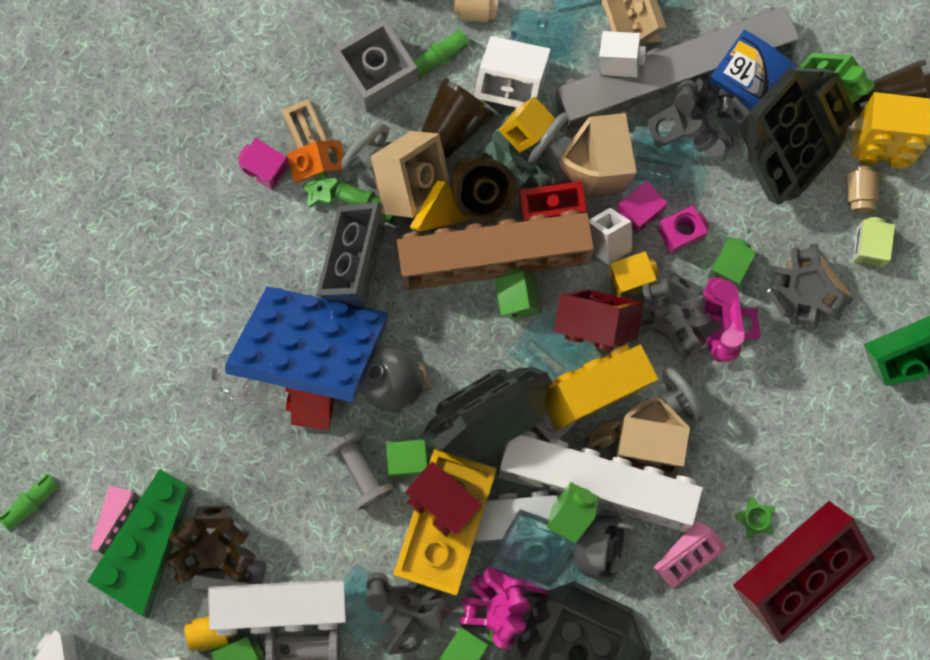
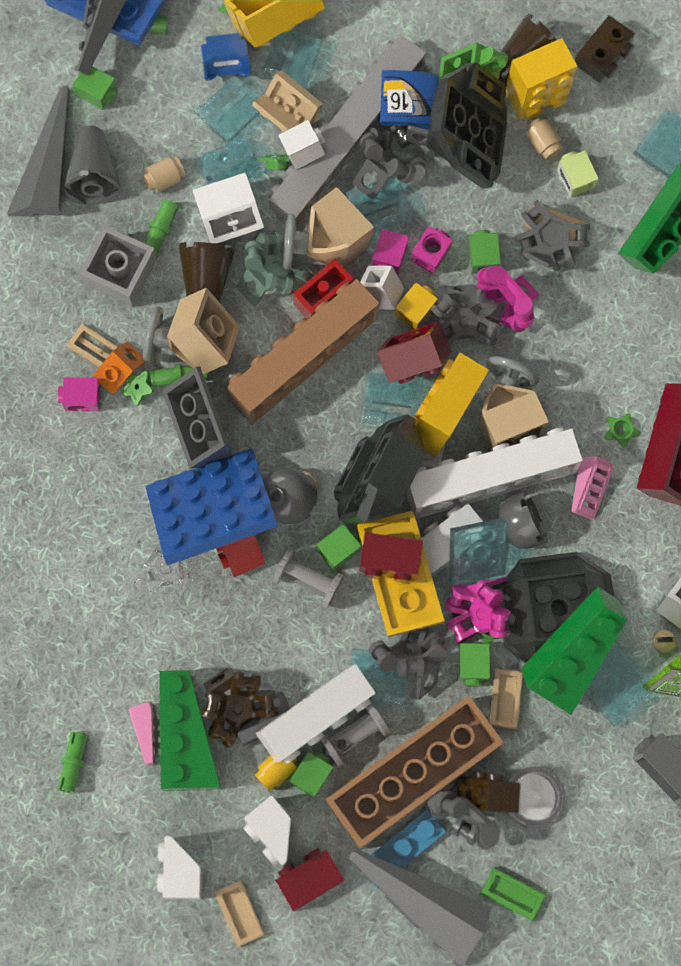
camera: 35 degrees left, 0 degrees up
(438, 209) = (242, 345): yellow tile -> none
(483, 188) = (264, 308): dark brown cone -> none
(518, 294) = (341, 373): bright green brick -> none
(527, 124) = (267, 240): yellow brick -> none
(573, 512) = (490, 505): bright green brick -> none
(587, 56) = (276, 161): none -> bright green plate
(603, 435) = (471, 438): tan plate -> none

